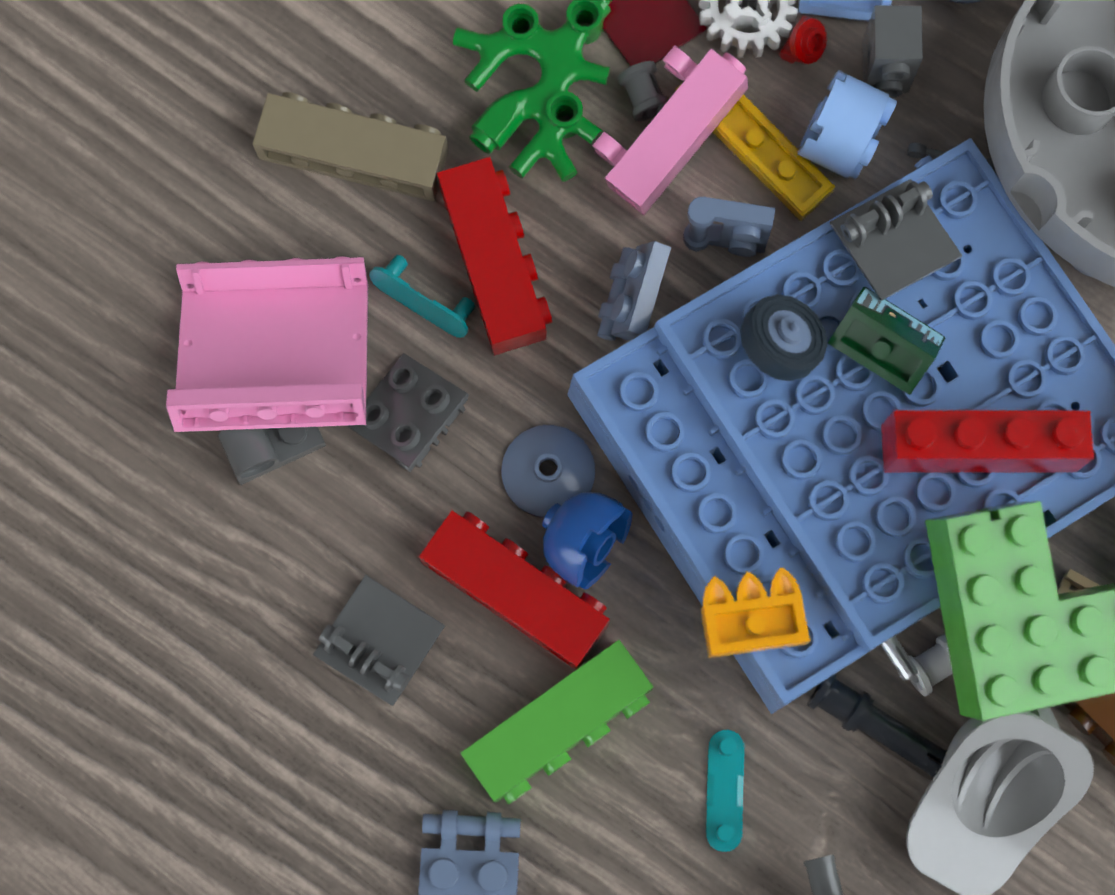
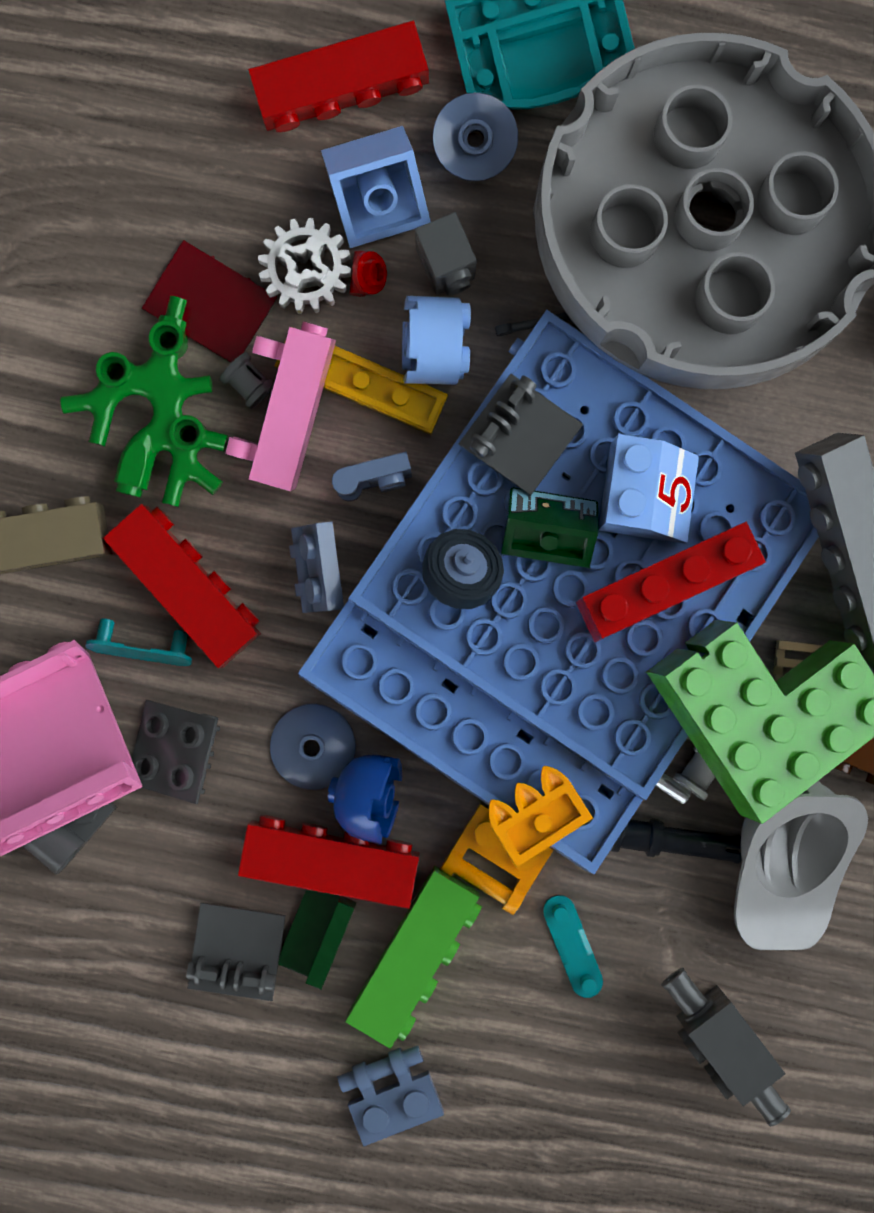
camera: 25 degrees left, 10 degrees up
(468, 658) = (316, 935): none -> dark green panel
(686, 641) = (481, 839): none -> light orange plate
(1002, 344) = (648, 489): none -> light blue slope

